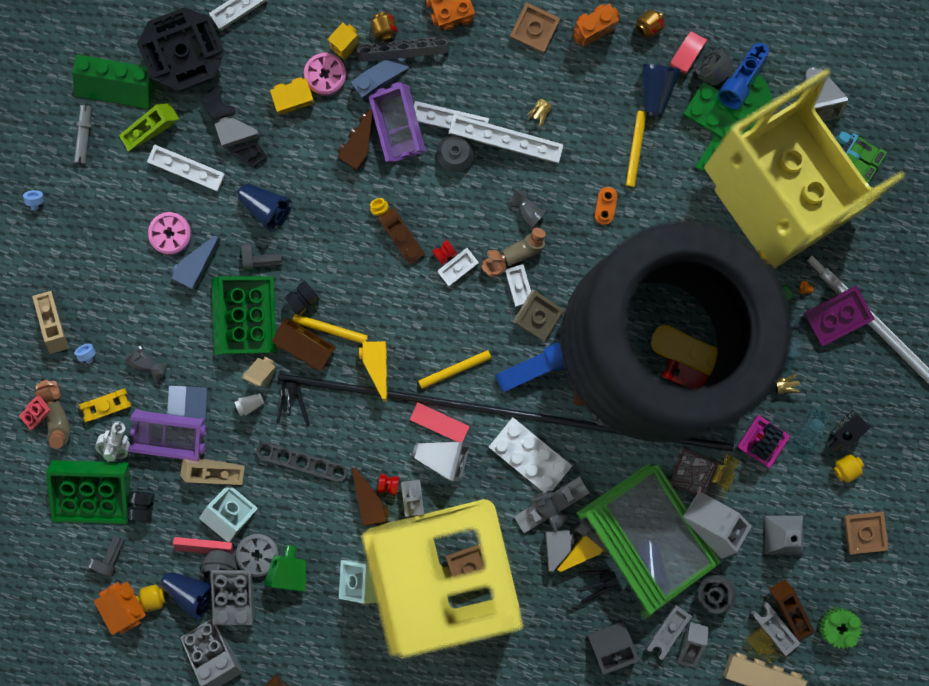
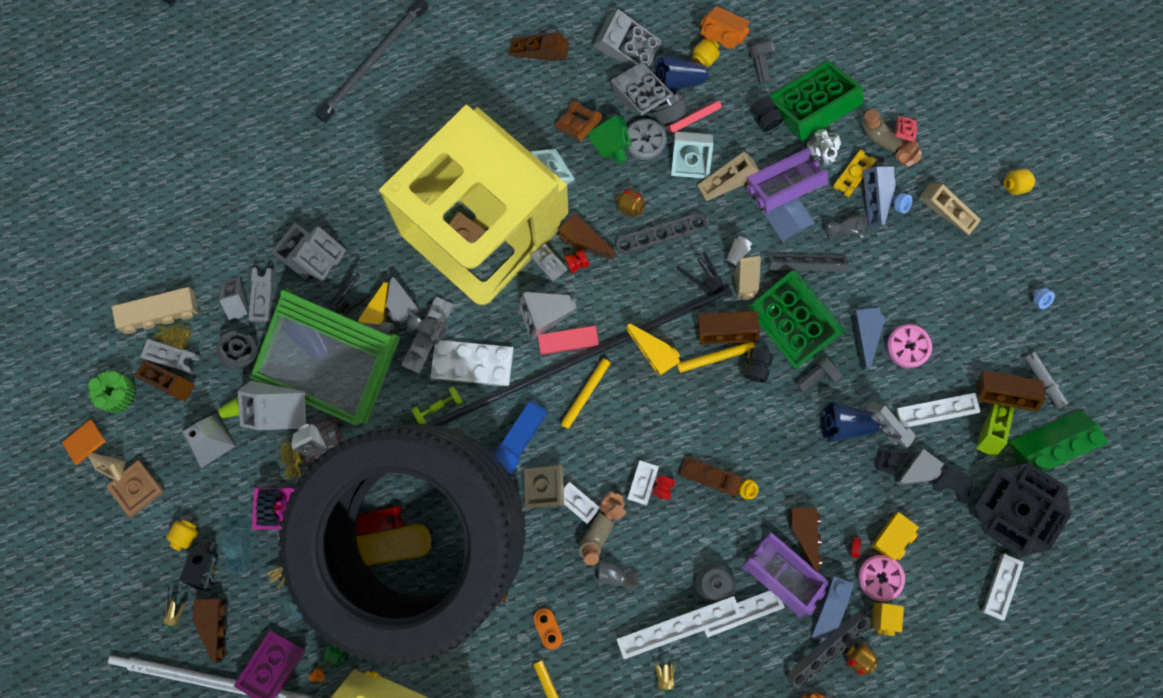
camera: 150 degrees right, 10 degrees down
(97, 375) = (879, 190): none -> sand blue slope
(118, 144) = (1010, 391): none -> reddish brown brick
(199, 355) = (813, 263): none -> dark grey plate
(233, 175) = (891, 426): none -> light grey plate
(309, 504) = (630, 203): none -> pearl gold head
(310, 607) = (575, 126): none -> dark orange plate
(329, 107) = (855, 547): none -> red tile
(581, 438) = (436, 406): none -> lime wheel
(599, 635) = (318, 253): none -> light grey slope
(703, 477) = (308, 440): none -> white slope
(750, 548) = (230, 409): none -> lime cone
(866, 383) = (209, 622): none -> reddish brown slope
(876, 565) = (108, 466): none -> tan slope
(886, 600) = (83, 442): none -> orange piece
(894, 407) = (170, 617): none -> pearl gold piece

